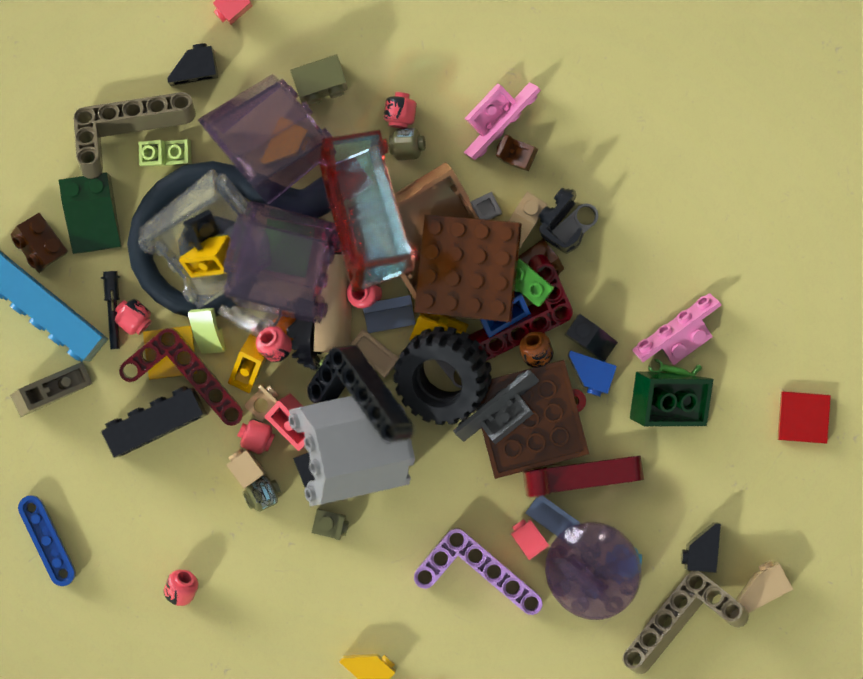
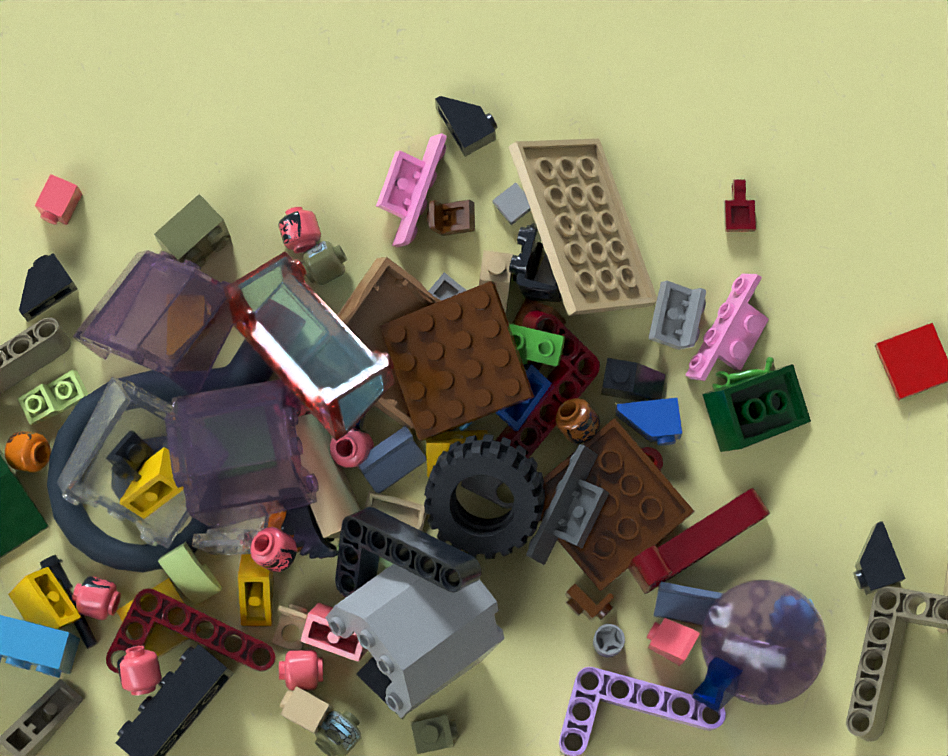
camera: 15 degrees left, 10 degrees down
(94, 302) = (44, 600): none -> yellow slope
(129, 186) = (27, 451): none -> orange head
(140, 387) = (139, 670): none -> coral head
(476, 481) = (581, 603): none -> reddish brown bracket
(487, 516) = (612, 638): none -> light grey wheel
(546, 586) = (719, 684): none -> clear blue panel
(560, 86) = (467, 124): none -> black slope
(567, 162) = (512, 203): none -> light grey tile
(608, 207) = (583, 225): none -> tan plate
(647, 304) = (677, 315): none -> light grey bracket
(729, 247) = (739, 212): none -> dark red plate

